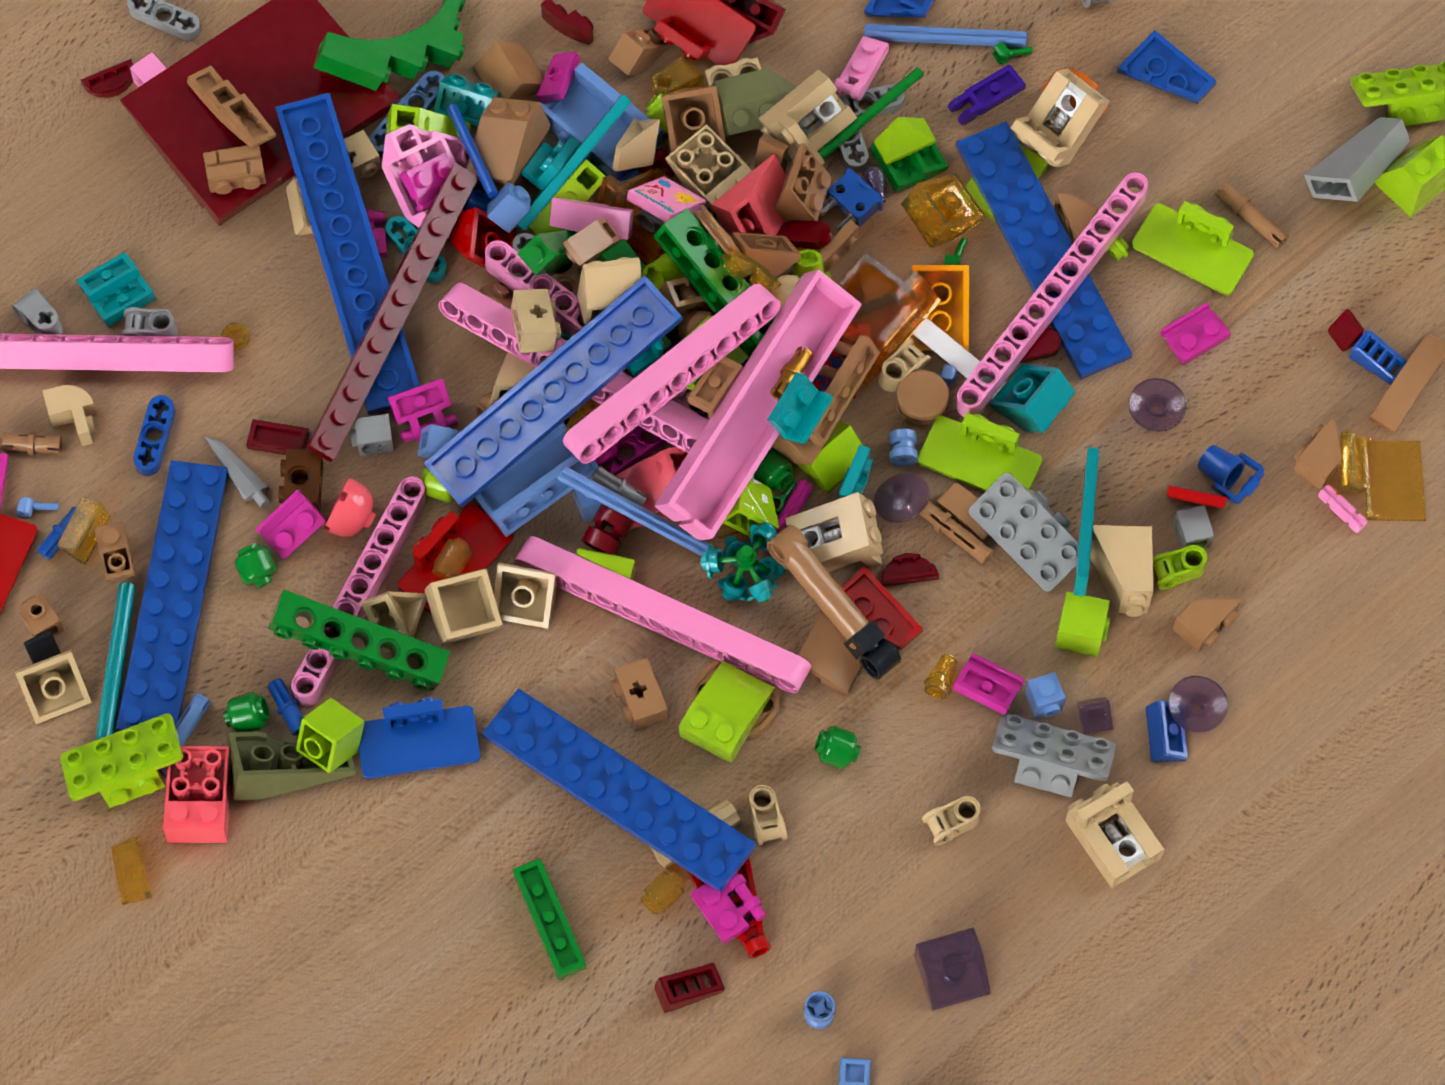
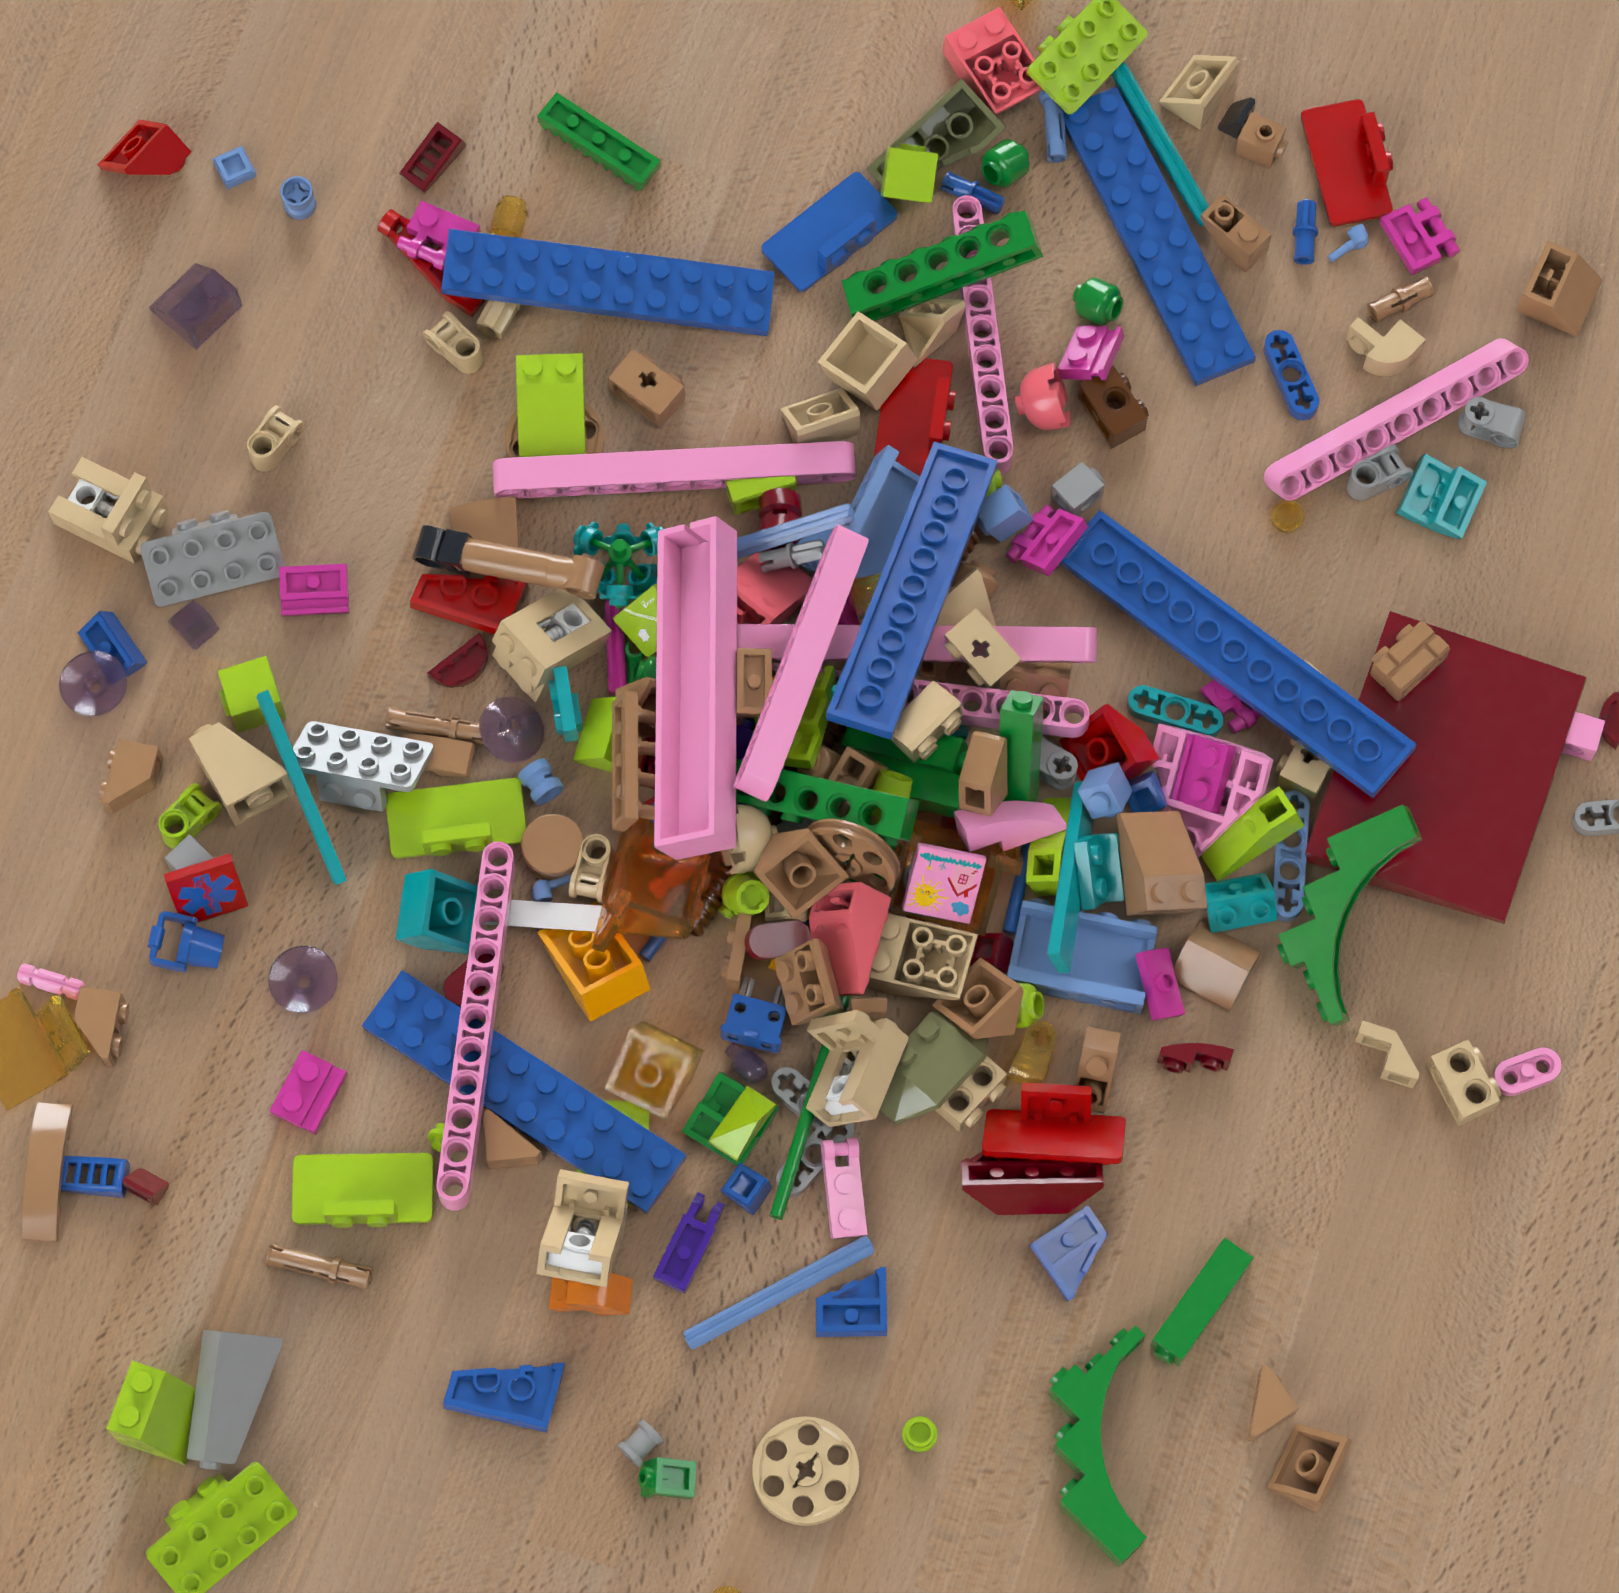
camera: 150 degrees right, 5 degrees up
(79, 535) = (1286, 243): clear yellow slope -> none
(230, 107) = (1460, 718): medium nougat slope -> none
(243, 477) = (1173, 384): light grey bar -> none
(276, 437) = (1170, 442): dark red tile -> none
(392, 313) = (1143, 614): plate -> none
(452, 559) = (911, 404): clear yellow brick -> none
(472, 151) = (1185, 830): blue bar -> none
(637, 145) = (1019, 934): tan slope -> none
(742, 266) = (796, 814): clear yellow slope -> none
(797, 364) = (681, 733): pearl gold pin -> none
(799, 409) = (646, 695): teal bracket -> none
(837, 747) = (425, 443): green head -> none
(926, 105) = (747, 1188): none -> blue slope
(940, 680) = (364, 569): clear yellow cone -> none
(955, 259) = (611, 1022): green hand -> none
(1003, 54) = (703, 1307): green hand -> none
(1045, 695) = (249, 604): medium blue brick -> none

